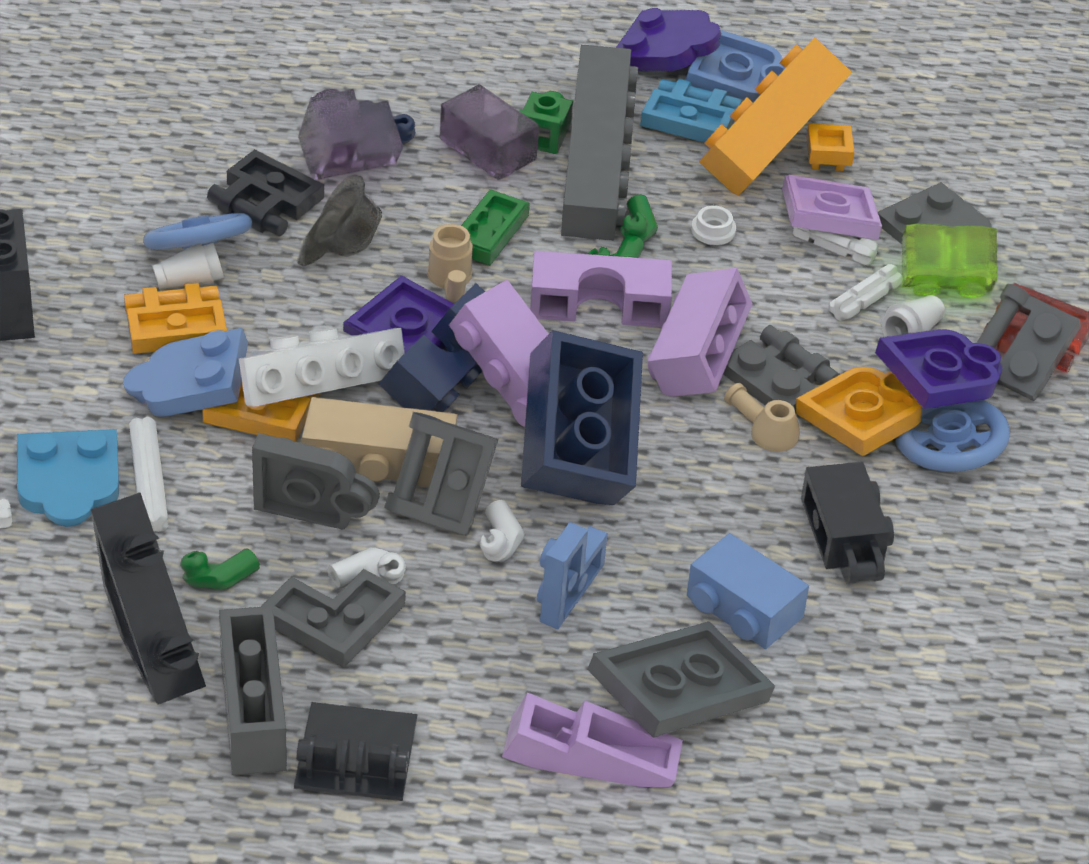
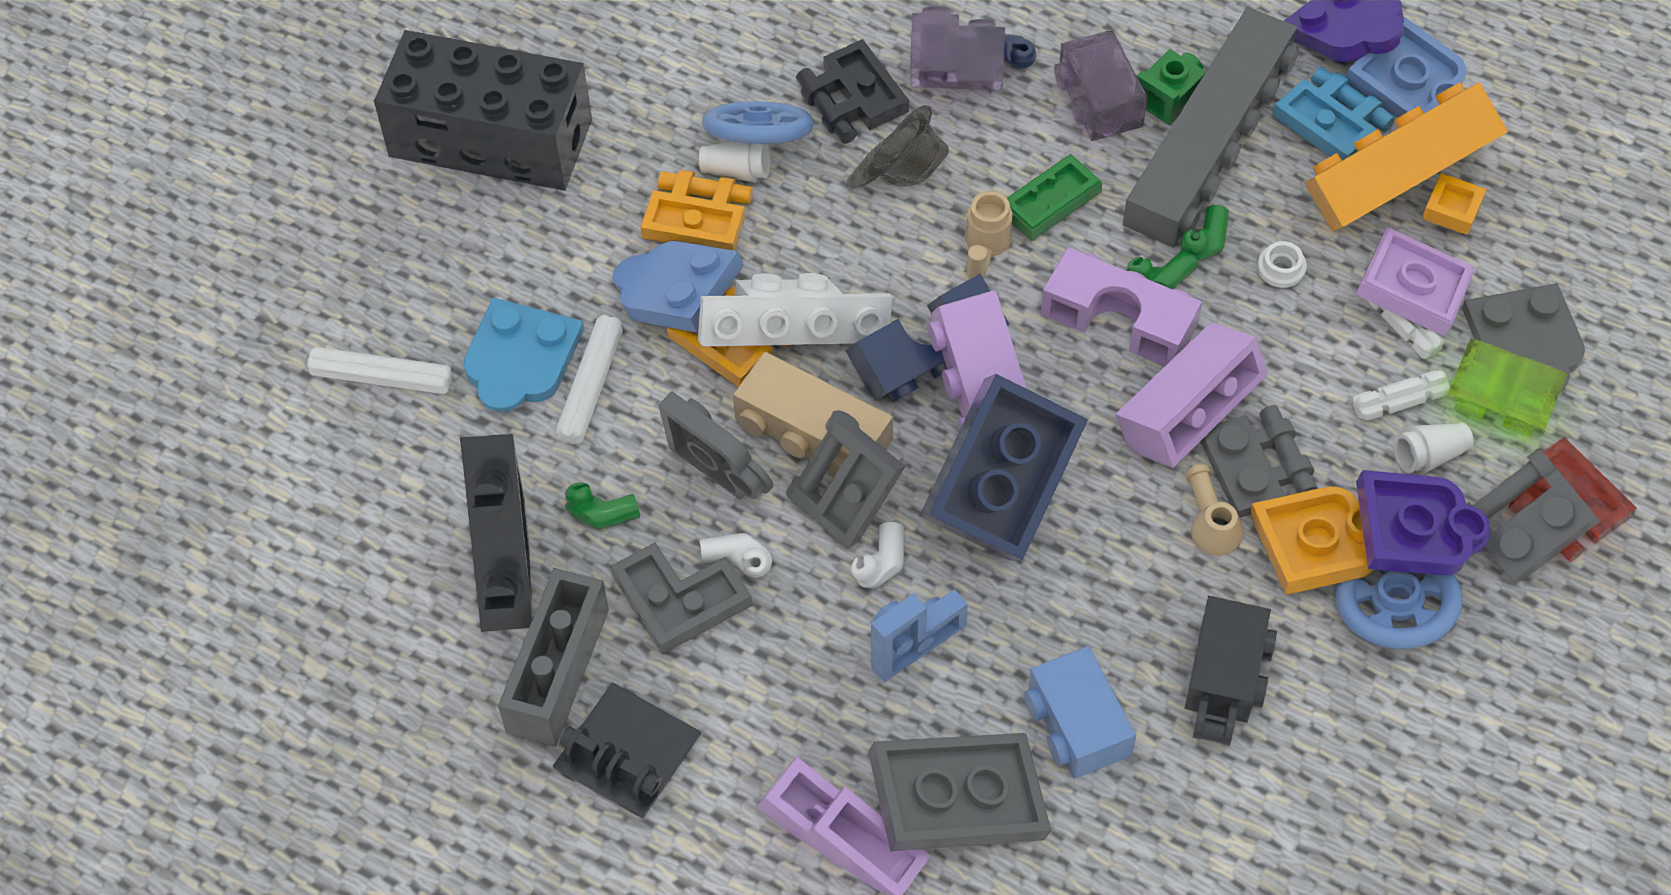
camera: 30 degrees right, 15 degrees up
(404, 307) = (913, 275): dark purple tile -> none

